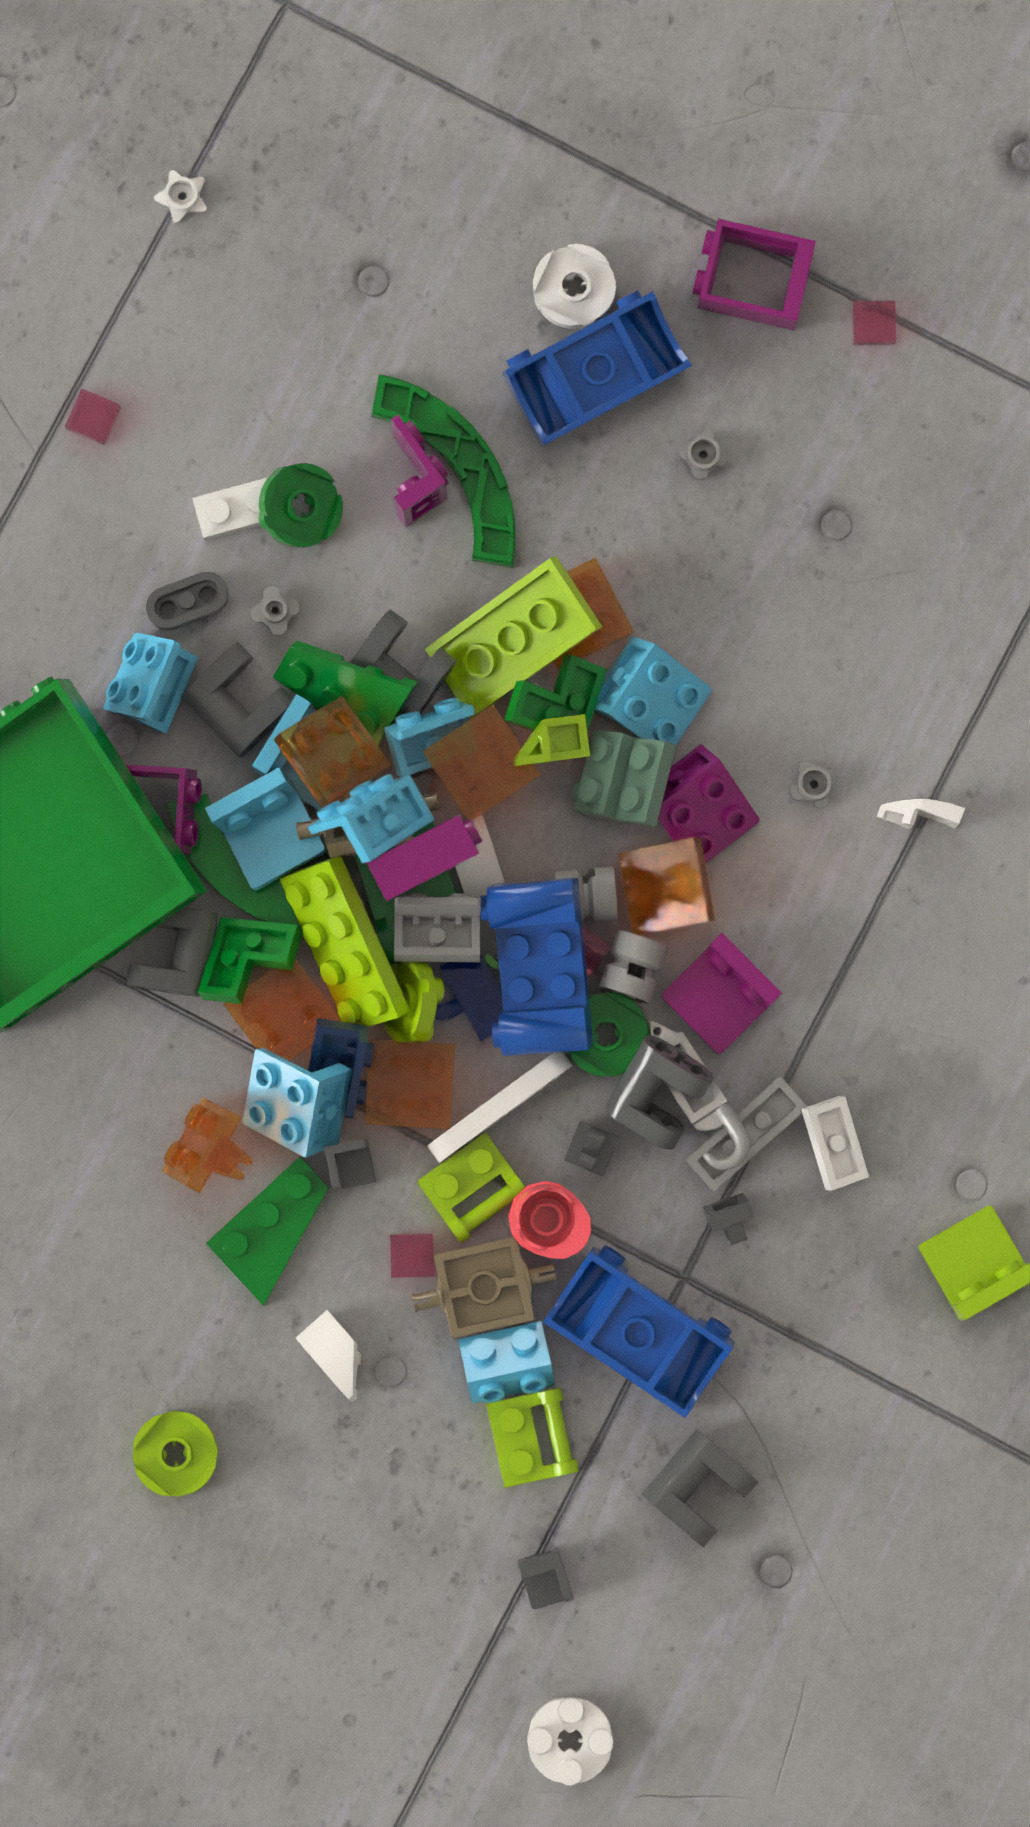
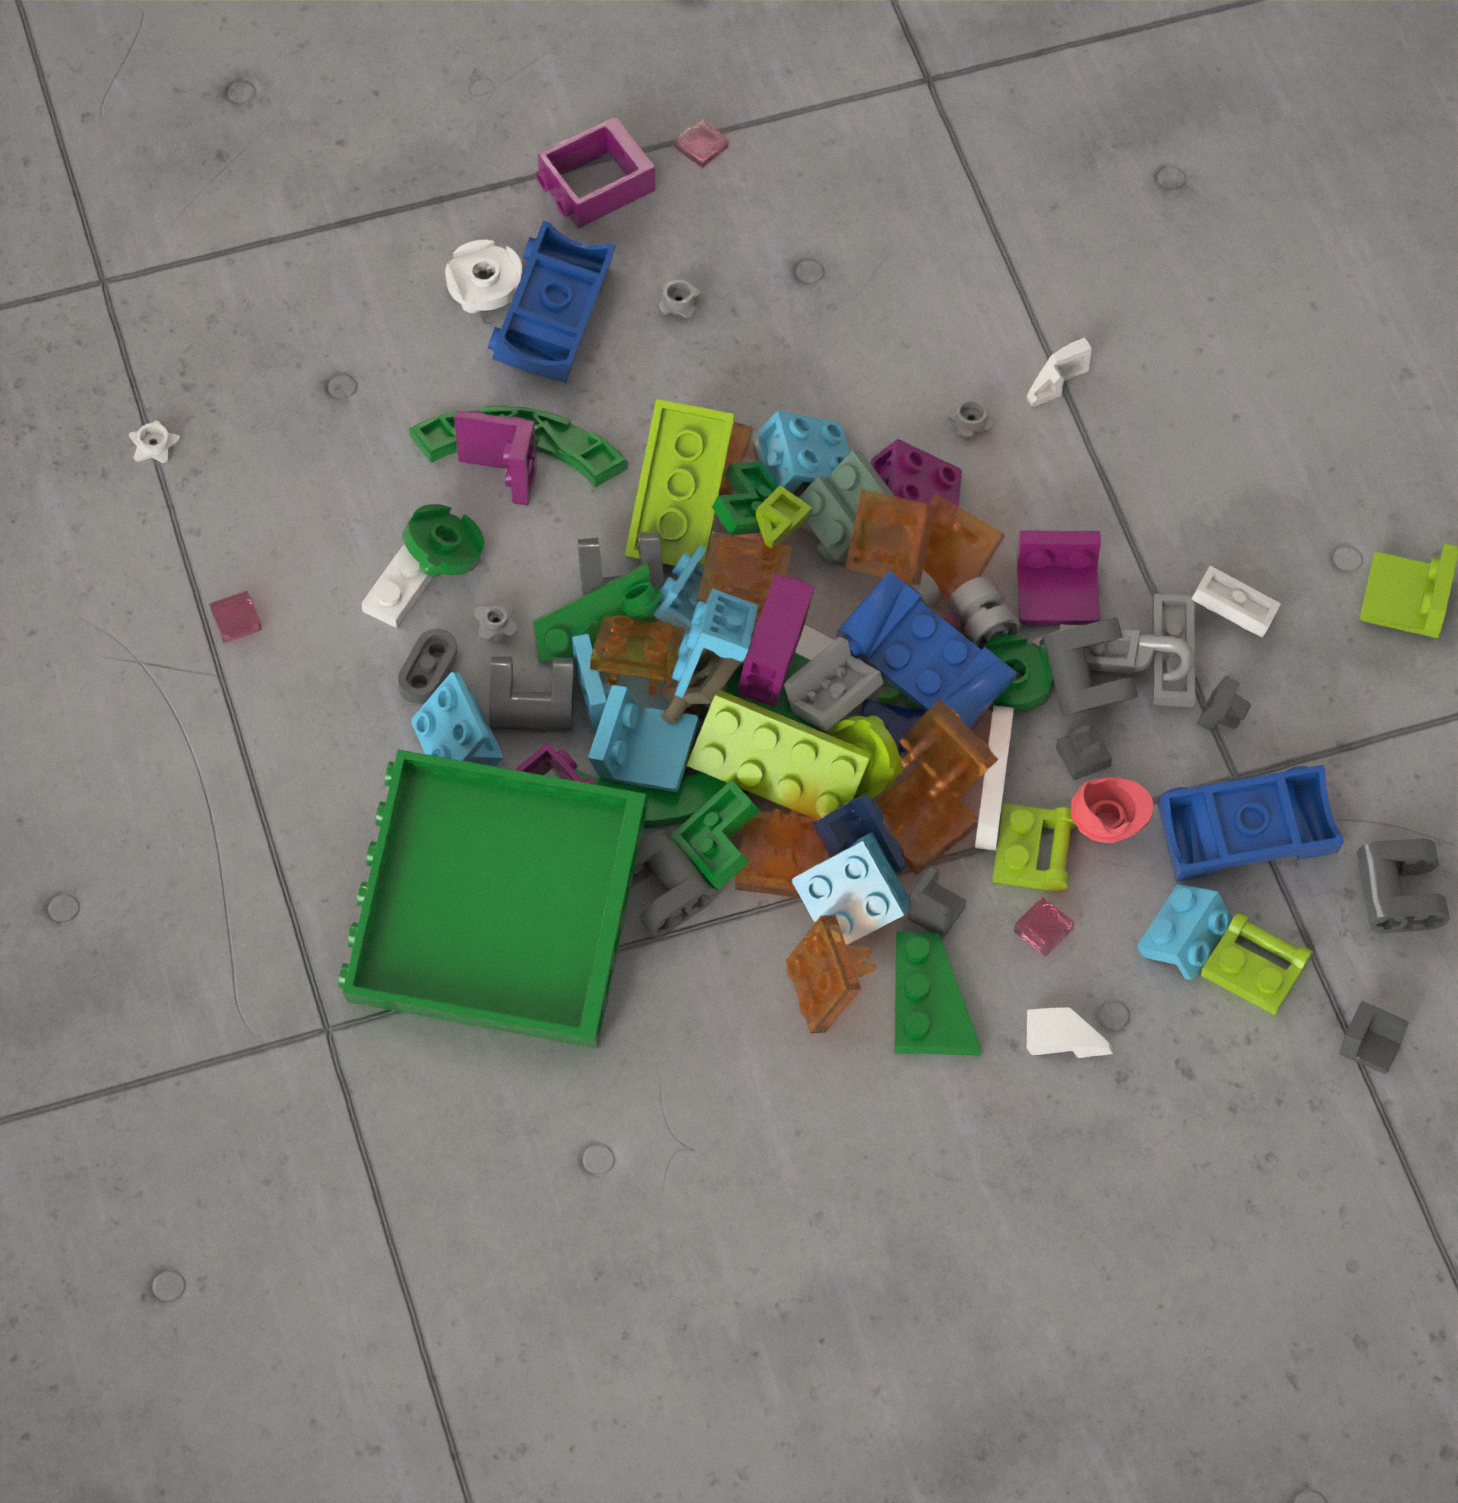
camera: 45 degrees left, 25 degrees down
(150, 1453) = (1027, 1225): lime plate -> none
(376, 714) = (641, 600): none -> green plate
(474, 1049) = (947, 750): none -> clear orange plate
(484, 1287) = (1115, 897): dark tan plate -> none
(609, 847) = (890, 536): none -> clear orange plate

